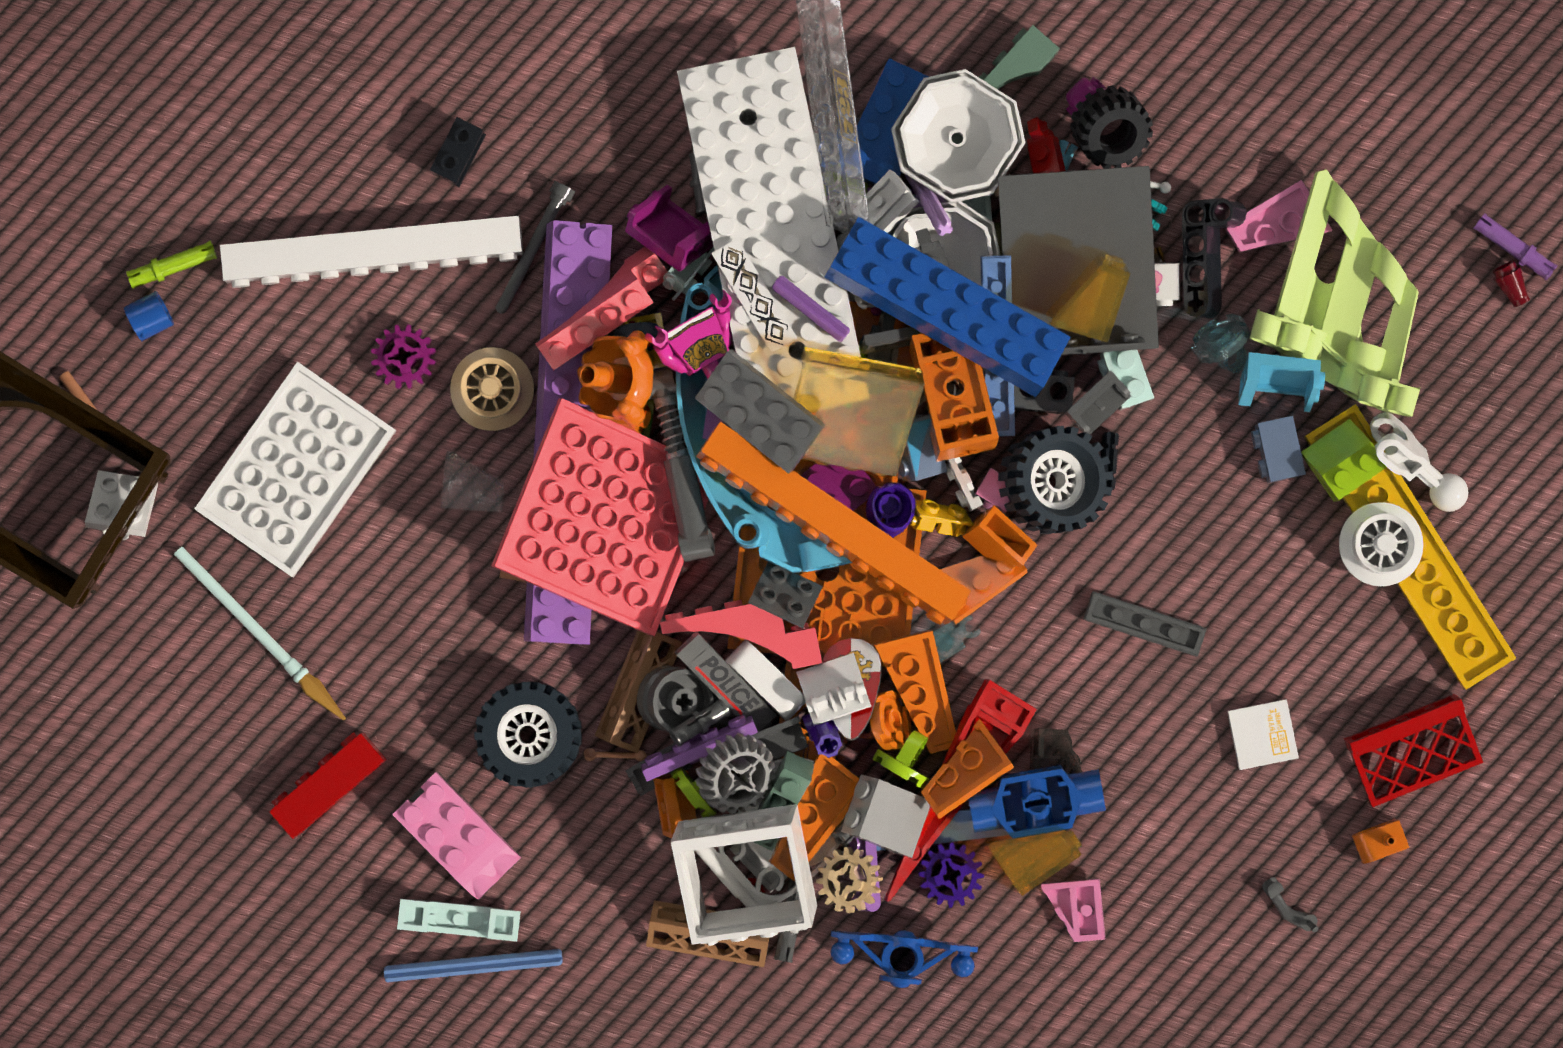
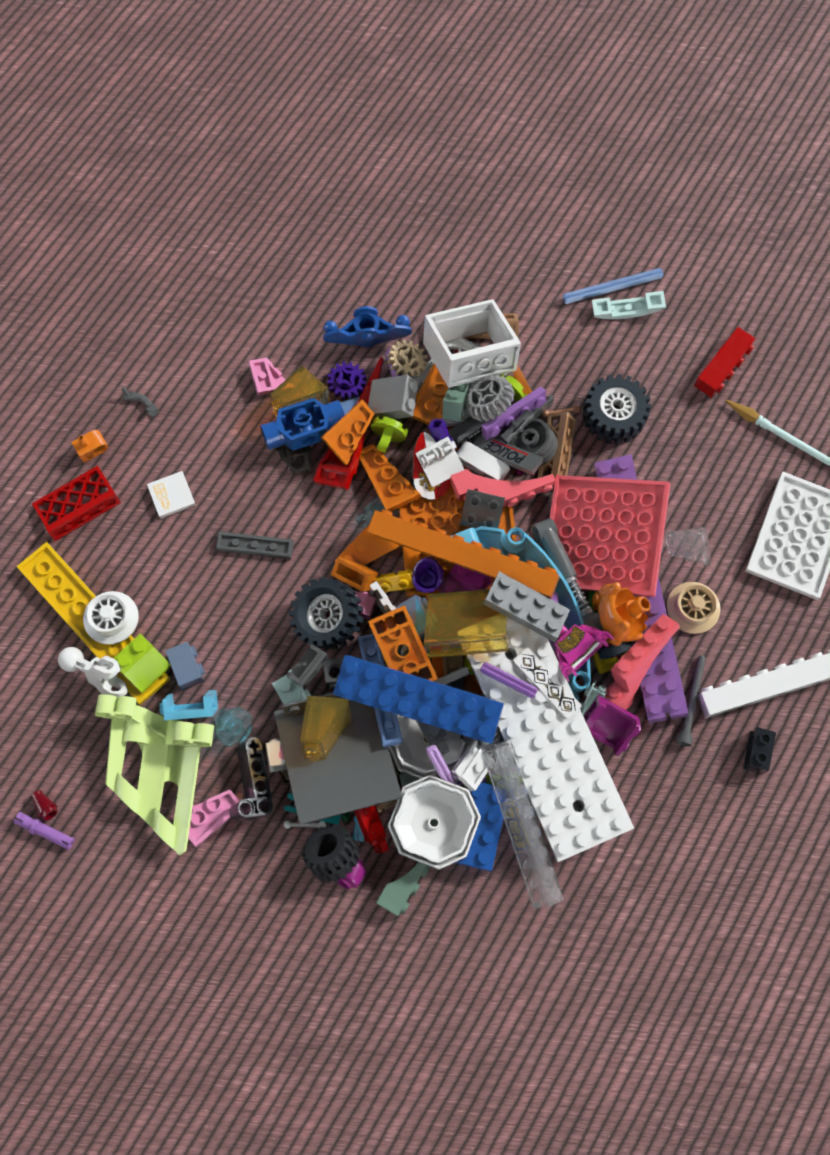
camera: 165 degrees right, 15 degrees down
(399, 338) = (754, 606): magenta gear -> none
(457, 835) = (642, 348): bright pink piece -> none
(889, 722) = (401, 454): orange tile -> none
(1110, 441) = (294, 642): black axle -> none

